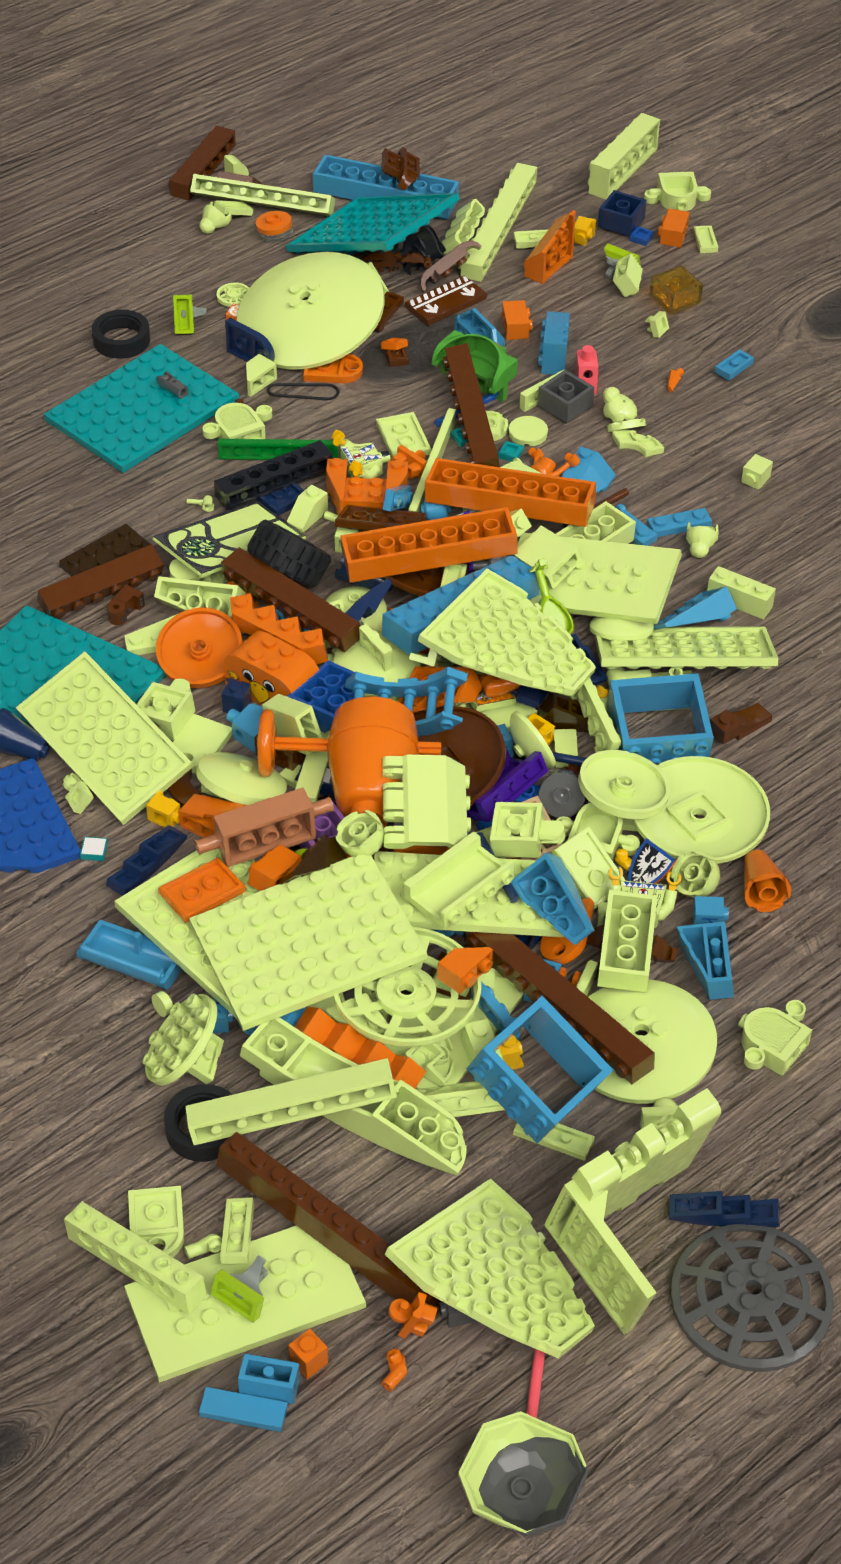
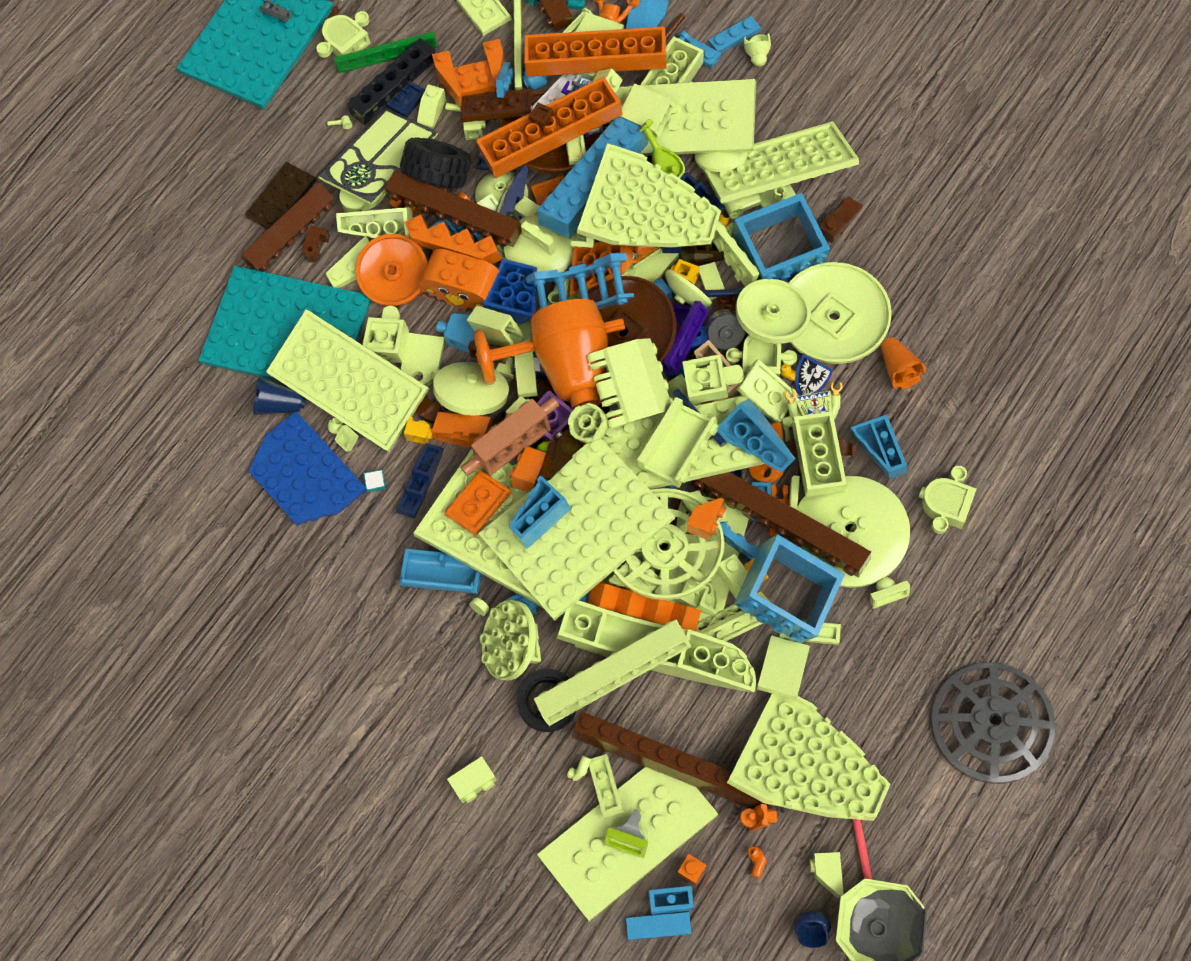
camera: 10 degrees left, 20 degrees up
(78, 1182) = (472, 780): none -> yellowish green brick
(135, 1257) = (539, 832): yellowish green brick -> none
(158, 1217) = (540, 792): yellowish green tile -> none
(208, 1211) = (581, 770): none -> yellowish green arm
(210, 1243) = (588, 800): yellowish green arm -> none
(236, 695) = (438, 308): dark blue brick -> none
(266, 906) = (540, 512): none -> dark azure wedge
(363, 459) = (459, 42): torso -> none
(416, 460) = (500, 32): orange hips -> none
(422, 526) = (541, 114): none -> reddish brown tile
(436, 1462) = (812, 929): none -> dark blue hair
(480, 1399) = (828, 871): none -> yellowish green slope
(505, 1162) = (783, 667): none -> yellowish green tile
(611, 1185) = (863, 705): yellowish green bracket -> none
(698, 874) = (851, 373): yellowish green cylinder -> none
(703, 607) = (777, 119): dark azure wedge -> none
(709, 910) = (868, 404): dark azure brick -> none
(719, 1211) = (953, 658): dark blue slope -> none
(747, 593) = (804, 93): yellowish green brick -> none

